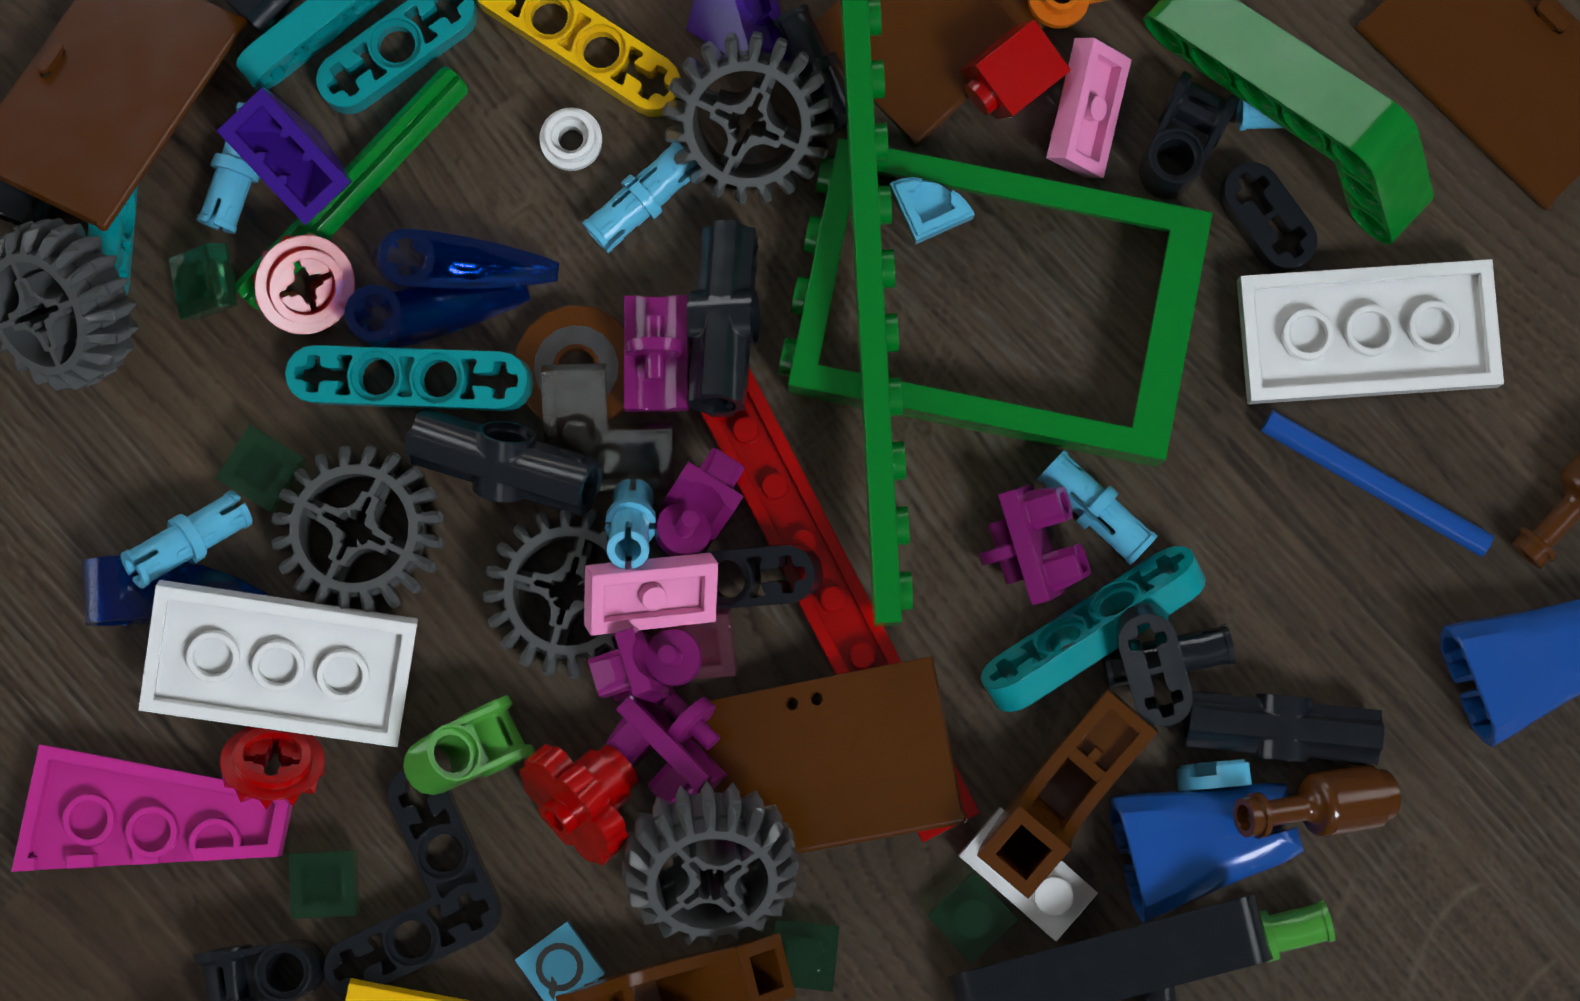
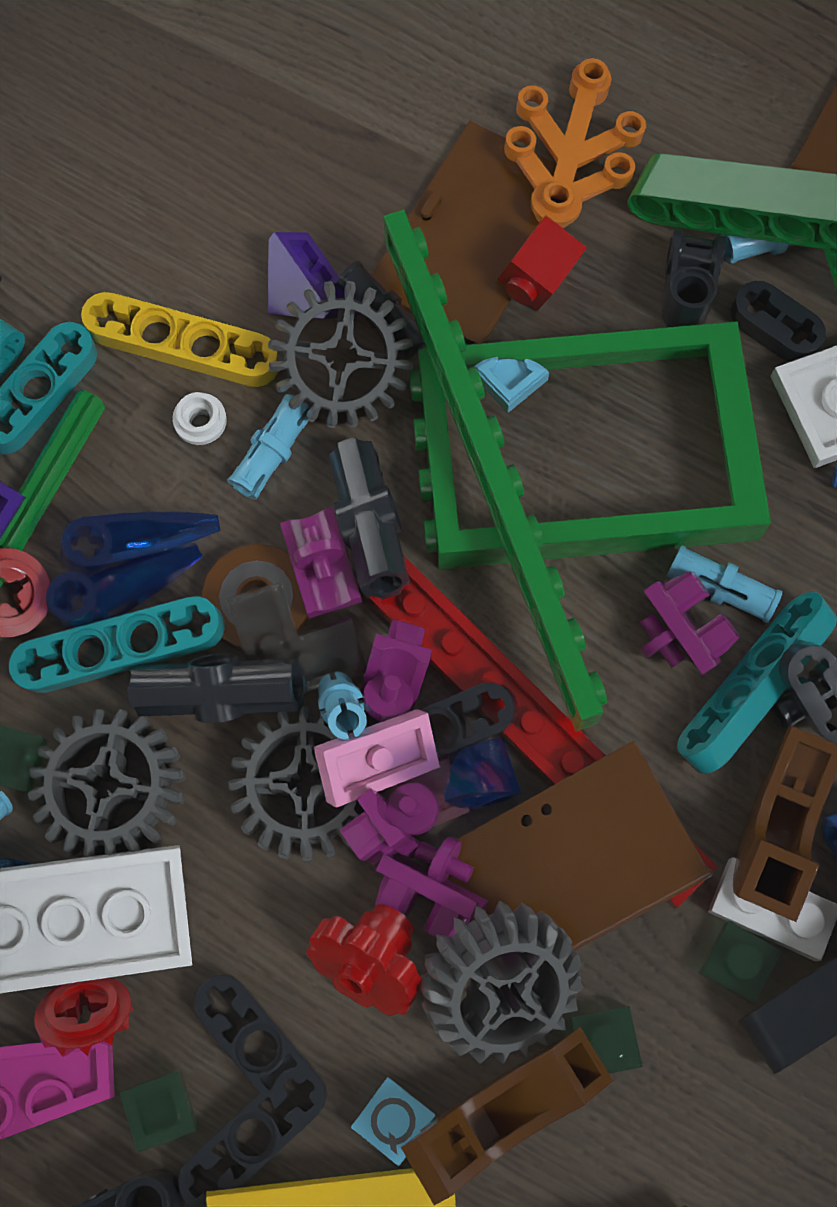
camera: 15 degrees left, 10 degrees down
(476, 745) = (260, 940): bright green piece -> none
(757, 643) = (481, 776): none -> clear blue piece
(1089, 108) = (608, 277): bright pink plate -> none

